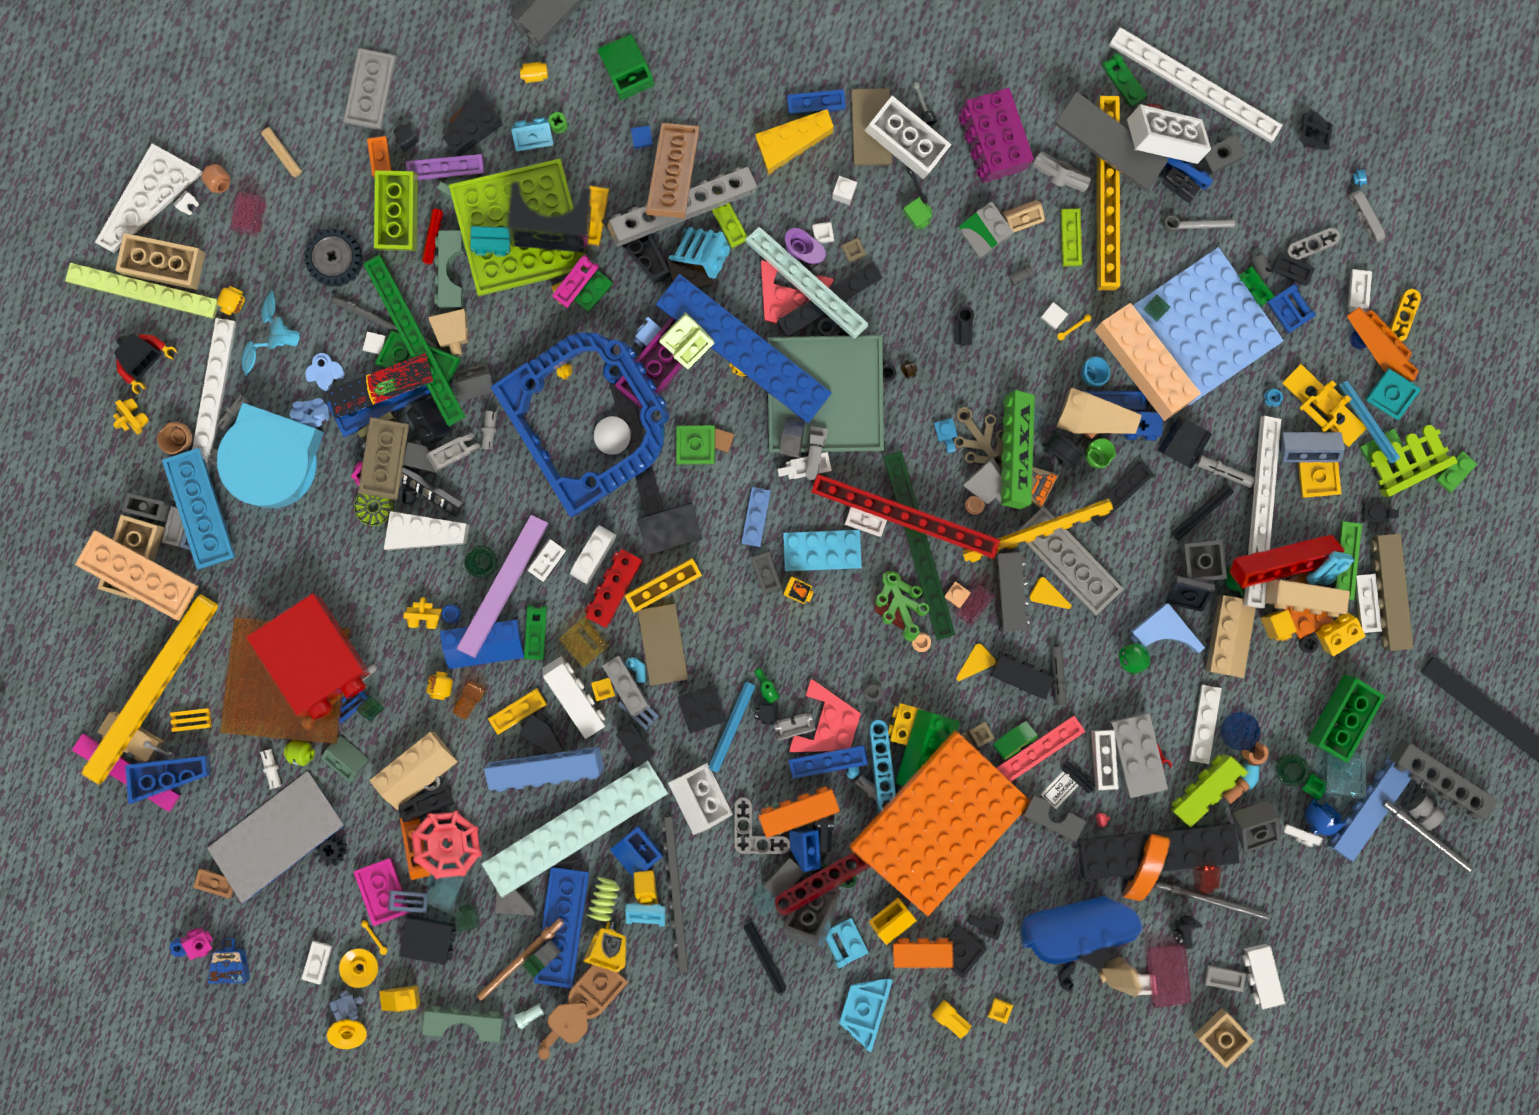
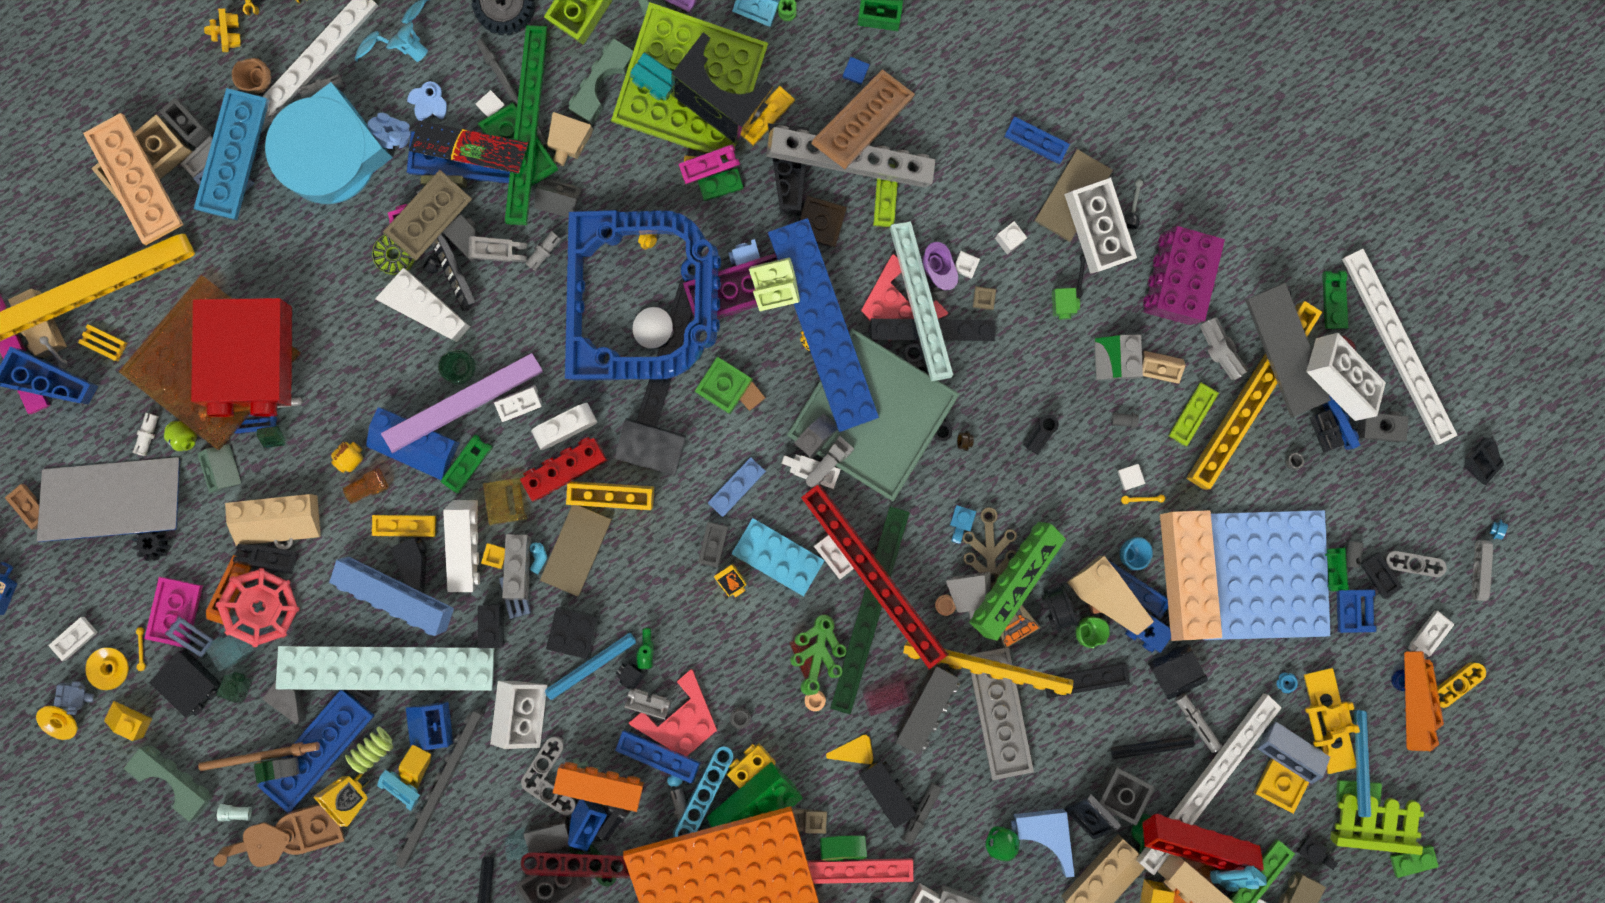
camera: 30 degrees right, 0 degrees up
(422, 611) = (375, 379): yellow hips -> none
(428, 421) = (491, 207): black brick -> none
(434, 227) = (613, 32): red axle -> none
(451, 613) = (400, 397): blue plate -> none
(710, 254) = (849, 218): medium azure plate -> none
(791, 139) = (993, 160): yellow wedge -> none
(957, 594) = (876, 677): light nougat plate -> none
(1046, 594) = (959, 729): yellow sticker -> none
(1156, 308) = (1231, 530): clear green plate -> none
(1206, 224) = (1327, 482): light grey bar -> none
(1393, 394) = (1401, 751): teal tile -> none

